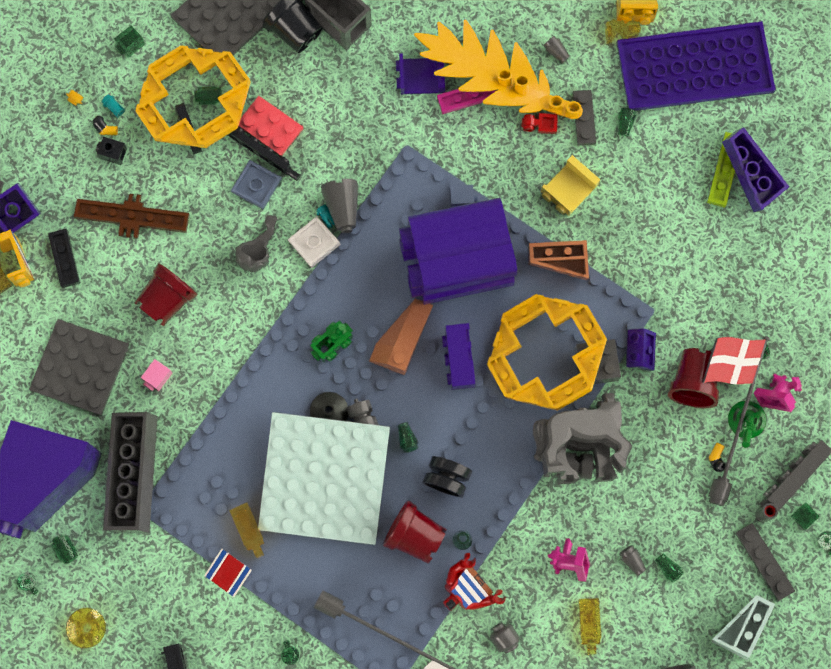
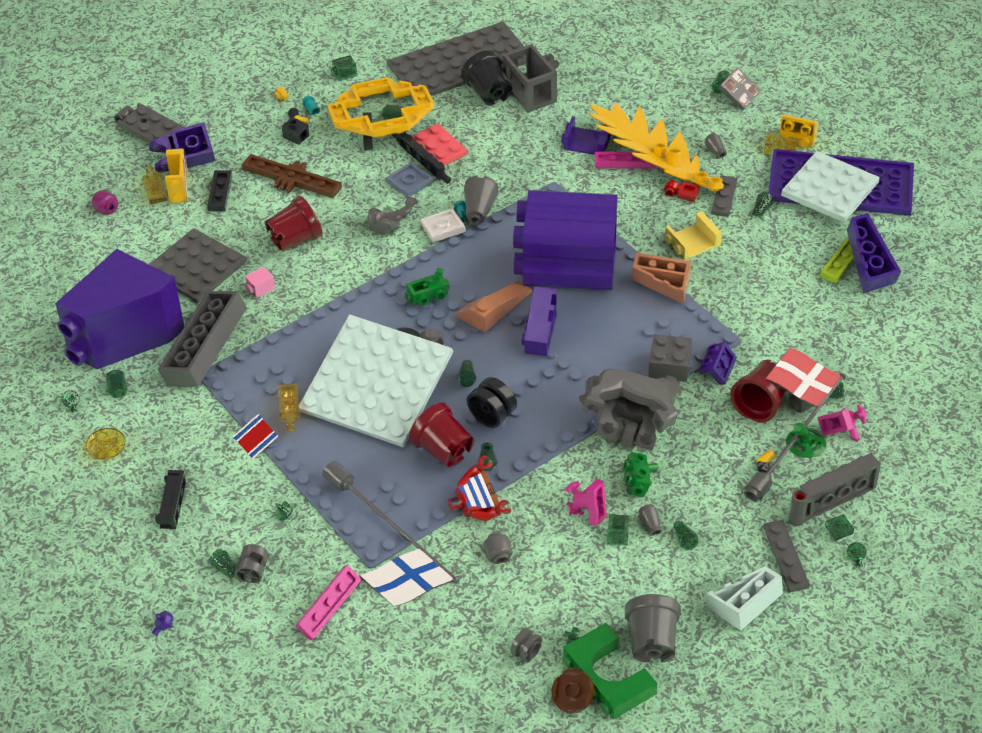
camera: 20 degrees right, 30 degrees down
(586, 360) = (601, 359): yellow plate -> none
(590, 623) = (587, 560): clear yellow hinge -> none
(607, 512) = (638, 473): none -> green brick
(608, 584) = (618, 529): none -> clear green brick
(689, 81) = (830, 186): none -> light aqua plate

